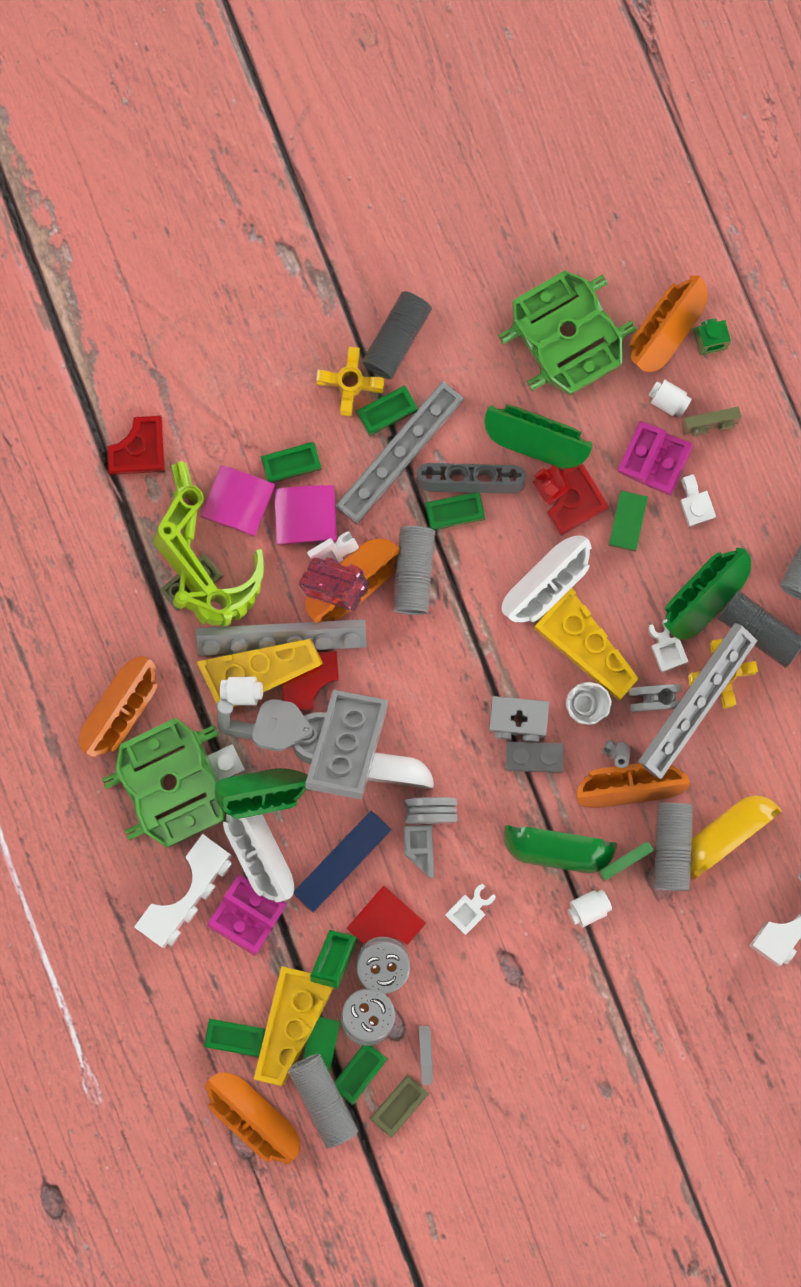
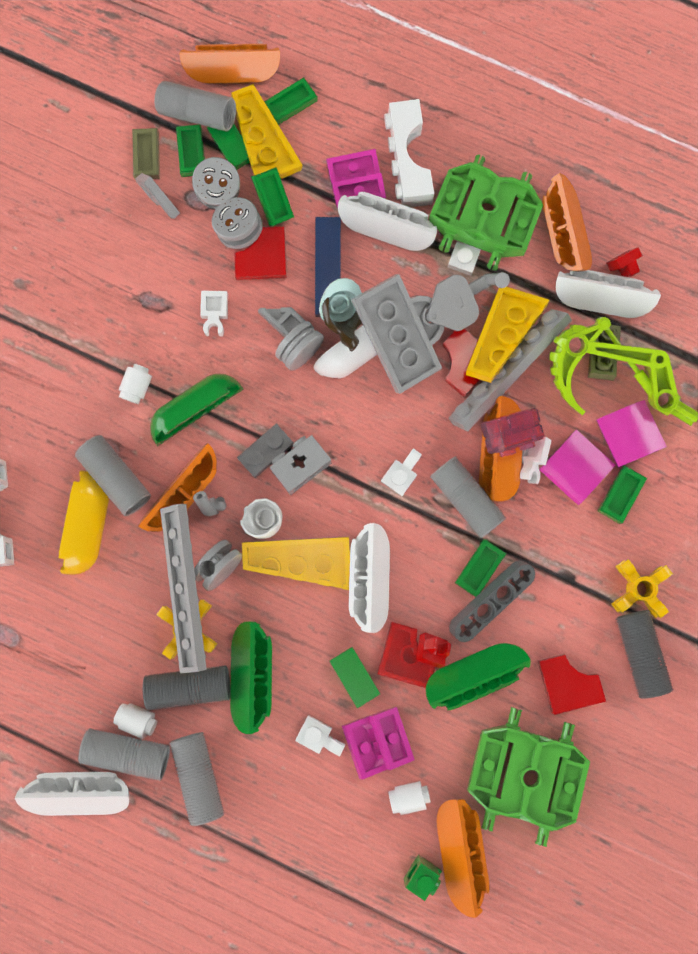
camera: 135 degrees right, 0 degrees up
(103, 635) = (626, 262): none -> red tile
(143, 625) = (606, 293): none -> white brick
(241, 690) = (501, 303): white brick -> none
(260, 792) = (426, 248): green brick -> none
(377, 803) = (339, 312): none -> piece
(387, 410) = (595, 594): green tile -> none
(399, 452) = (557, 574): light grey tile -> none
(447, 636) = (401, 475): none -> white plate
(474, 364) = (567, 687): none -> red tile
(625, 861) = (137, 436): green tile -> none
(668, 650) = (240, 609): white plate -> none
(721, 419) = (356, 819): olive plate -> none

